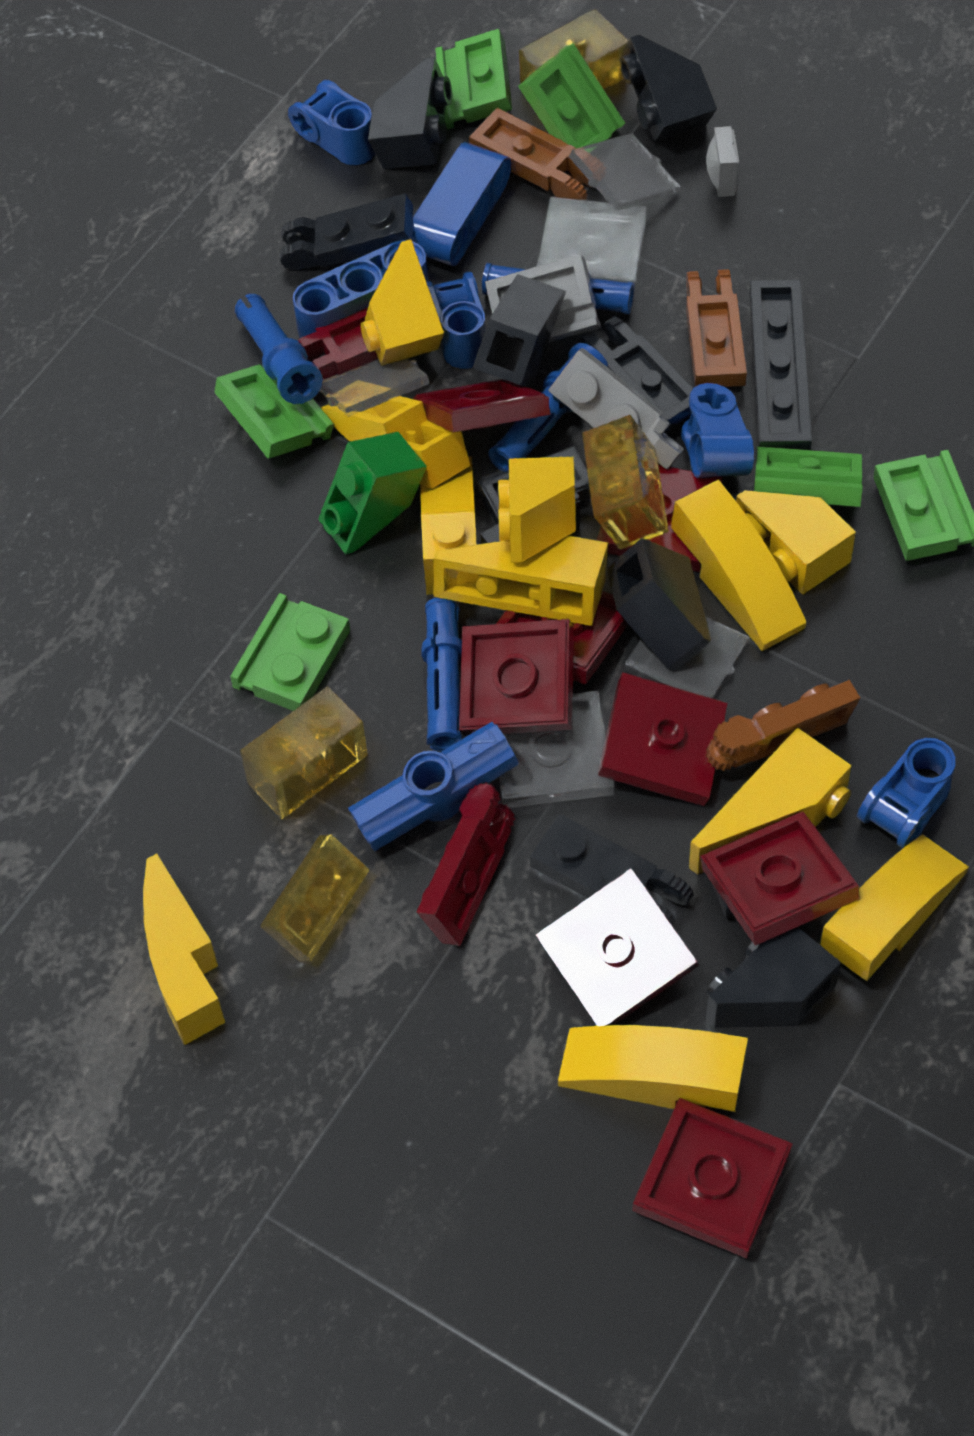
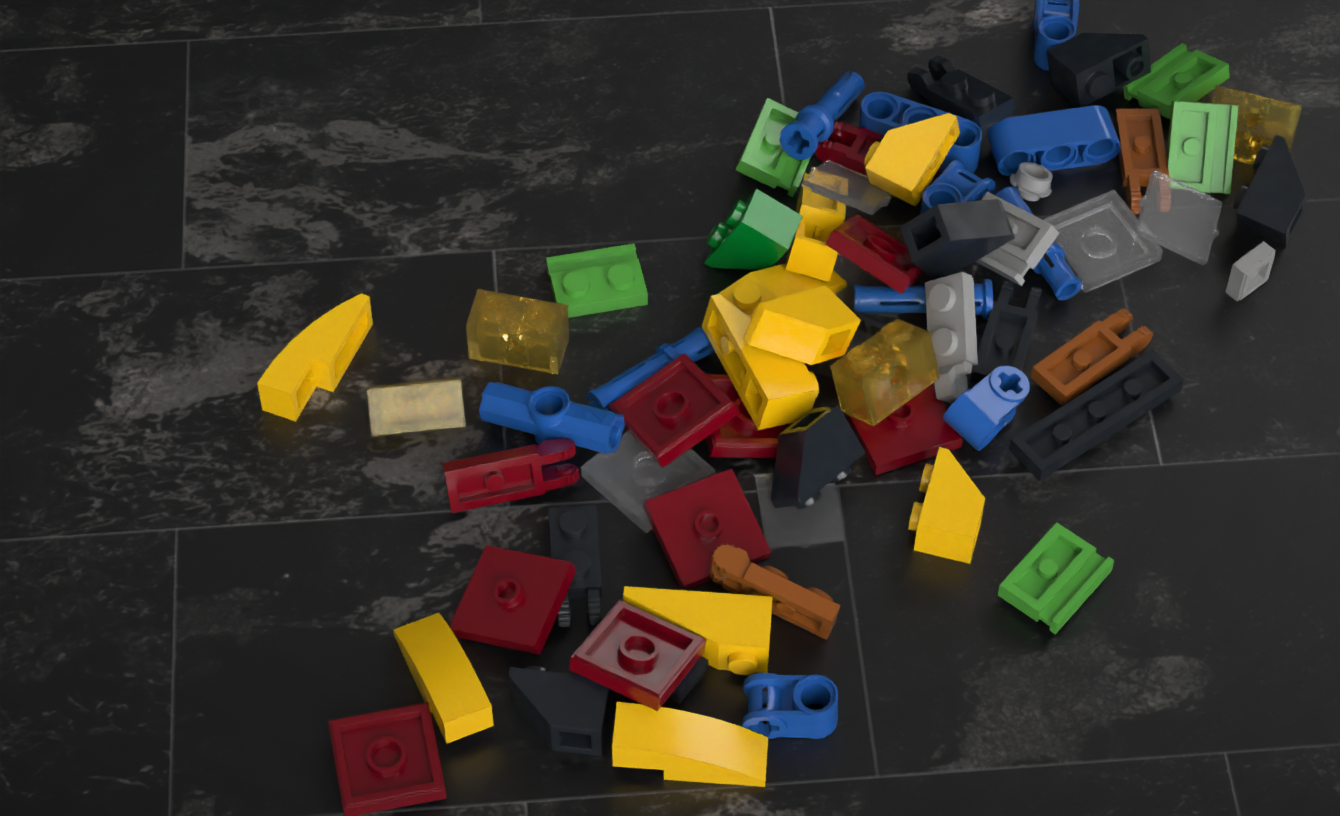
camera: 50 degrees right, 5 degrees down
(488, 246) = (1032, 181): none -> light grey plate
(737, 565) = (889, 488): yellow slope -> none
(812, 473) = (1009, 486): bright green plate -> none

